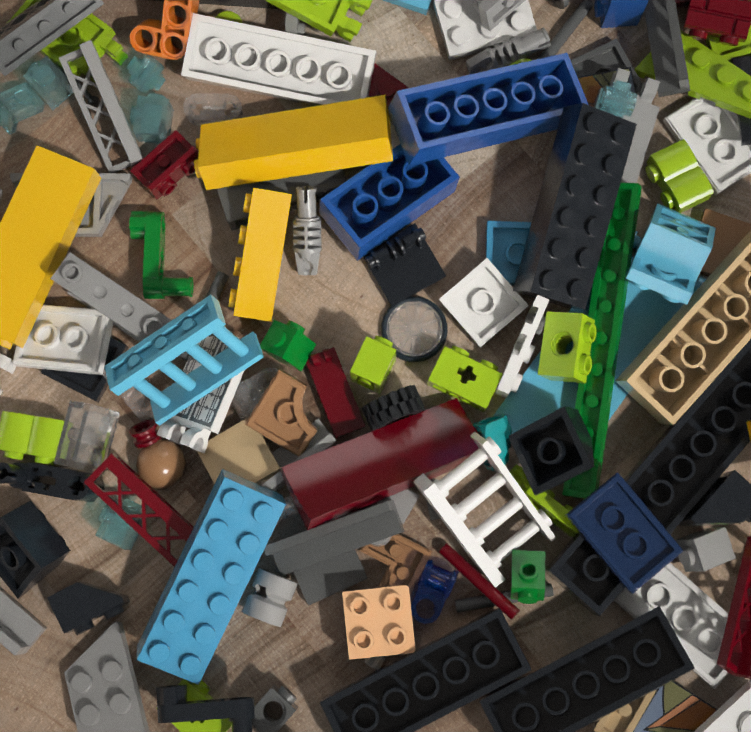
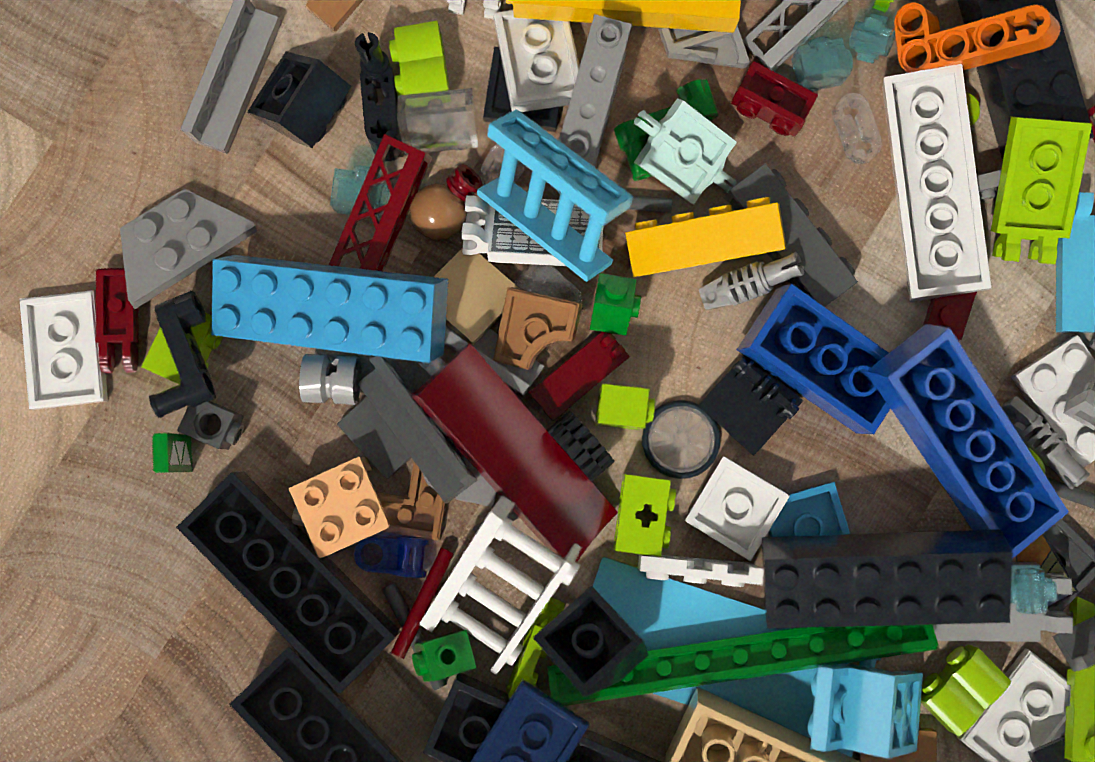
camera: 70 degrees right, 5 degrees up
(83, 603) = (262, 182): black slope -> none
(184, 247) = (685, 151): none -> light aqua plate
(294, 143) = (848, 233): yellow brick -> none
(498, 429) = (594, 570): teal rock -> none
(558, 332) = (731, 605): lime brick -> none

